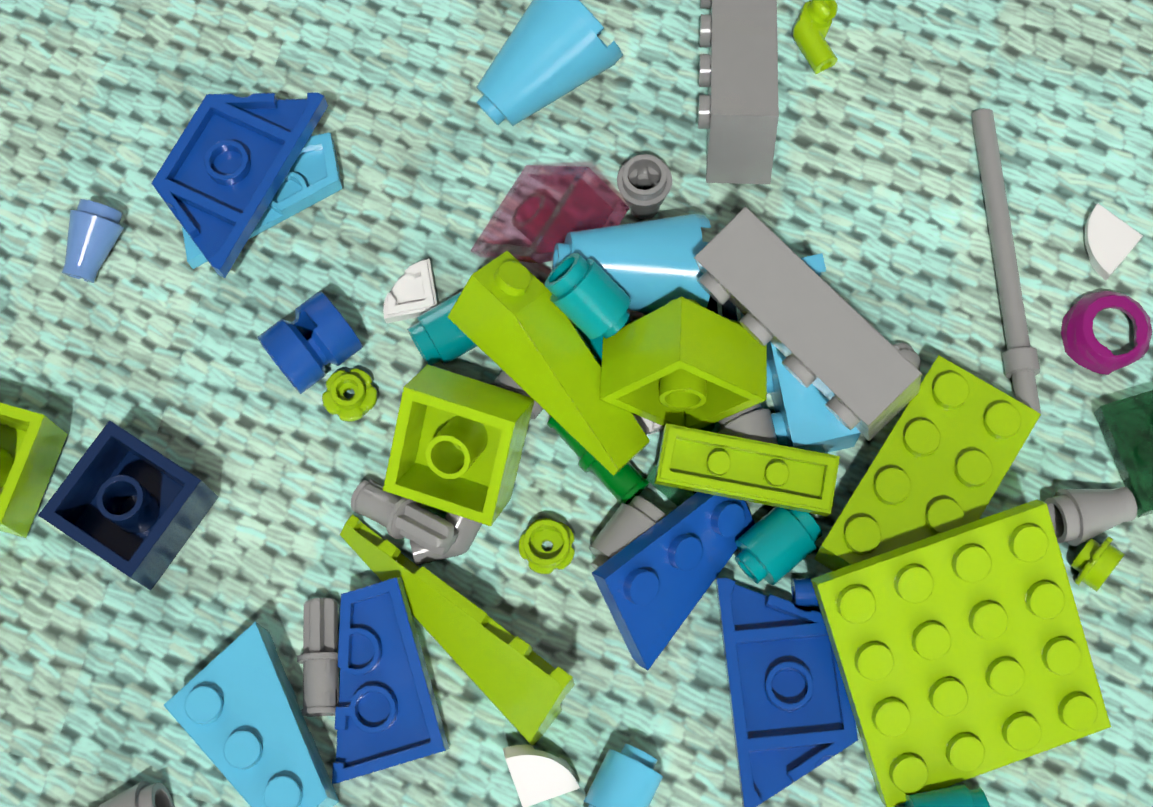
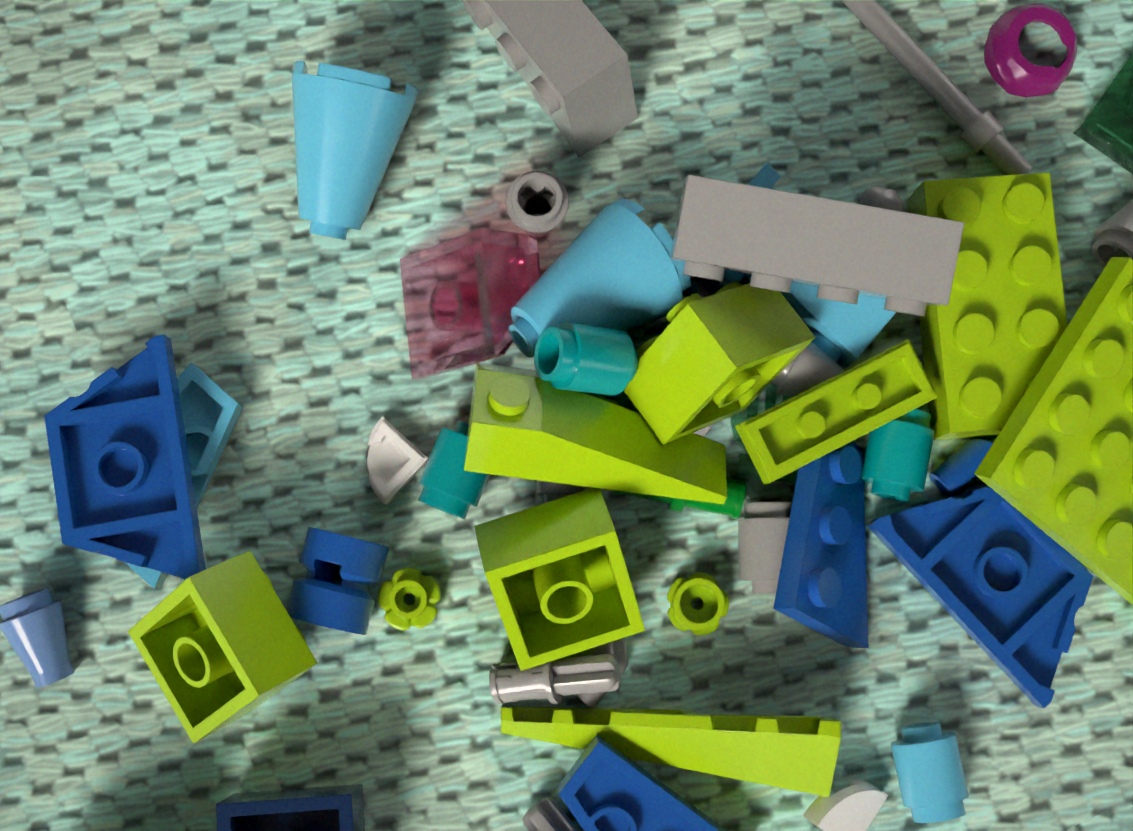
camera: 45 degrees left, 10 degrees up
(198, 323) = (221, 645): none -> lime brick

